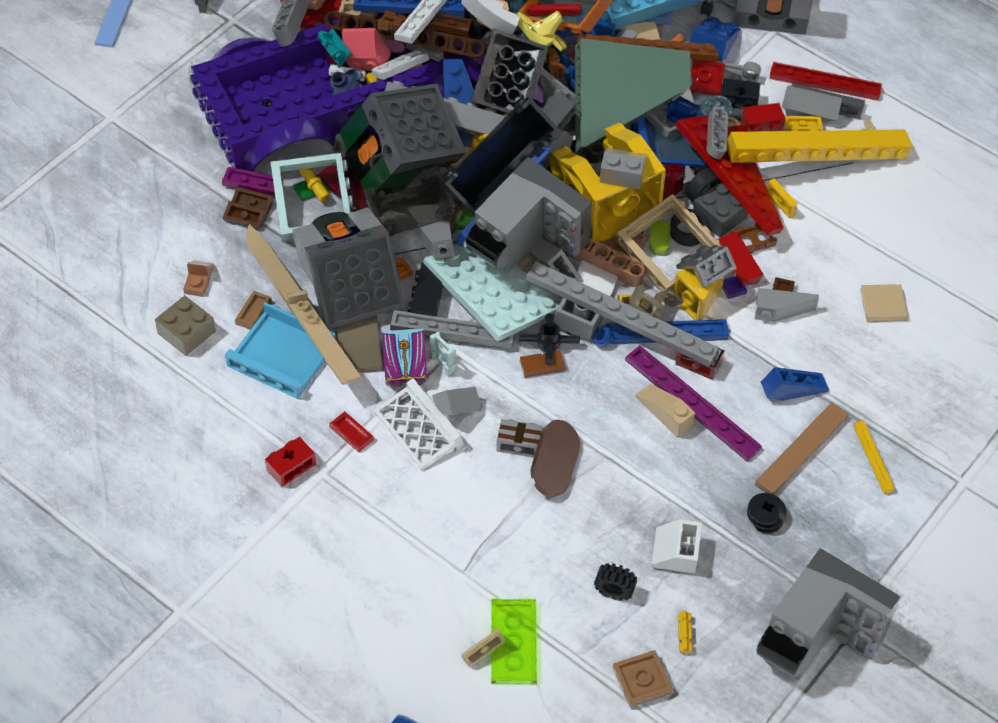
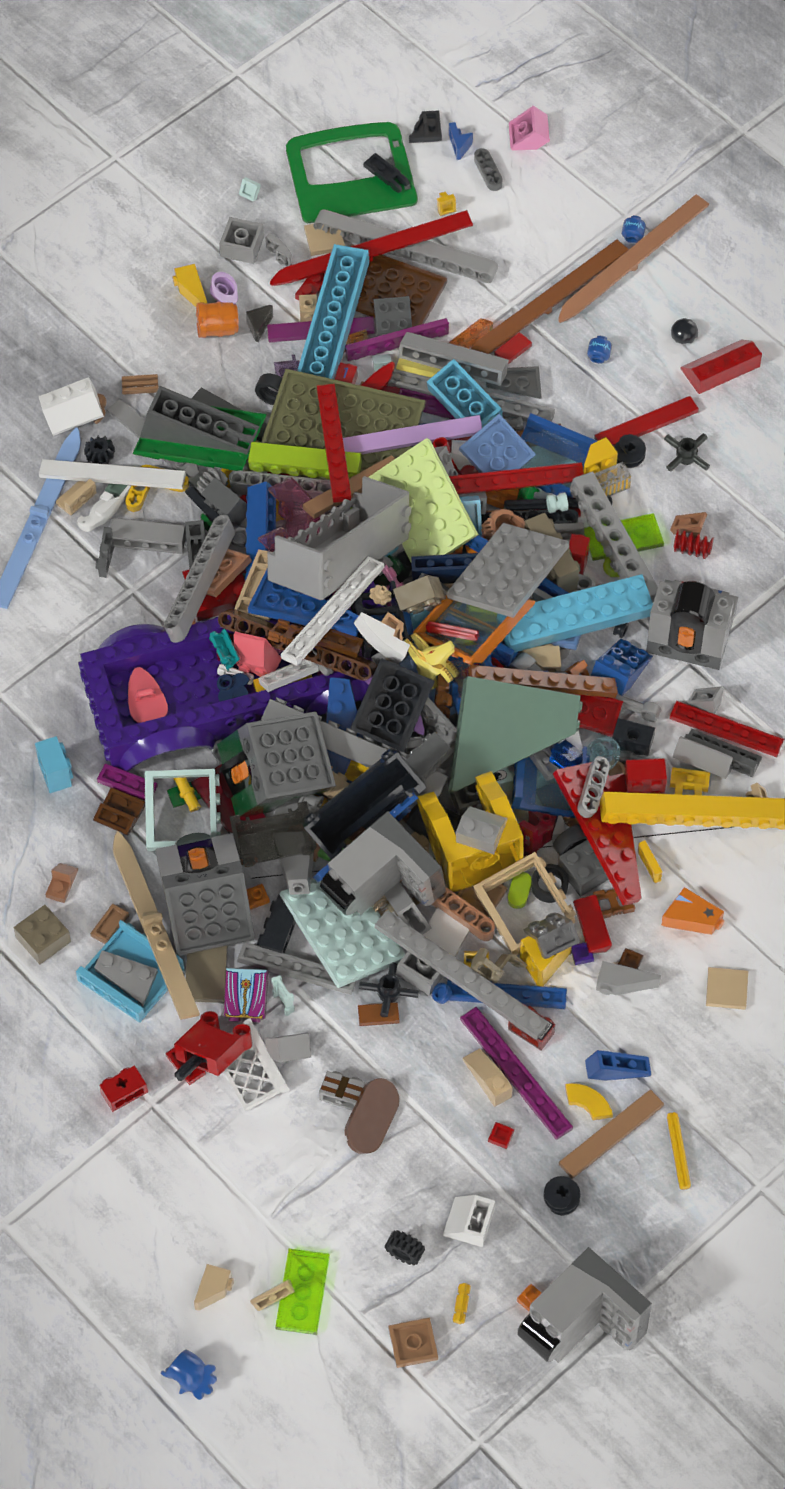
camera: 10 degrees right, 5 degrees up
(177, 170) = (54, 764): none -> medium azure brick
(260, 100) = (145, 697): none -> coral shield
(282, 354) = (128, 975): none -> light grey wing
(377, 409) = (209, 1047): none -> red piece
(417, 646) = (213, 1286): none -> tan slope
(690, 463) = (501, 1135): none -> red tile
(756, 619) = (528, 1296): none -> orange tile
(771, 419) = (588, 1099): none -> yellow tile
(802, 56) = (707, 698): none -> light grey slope
(835, 239) = (693, 914): none -> orange slope

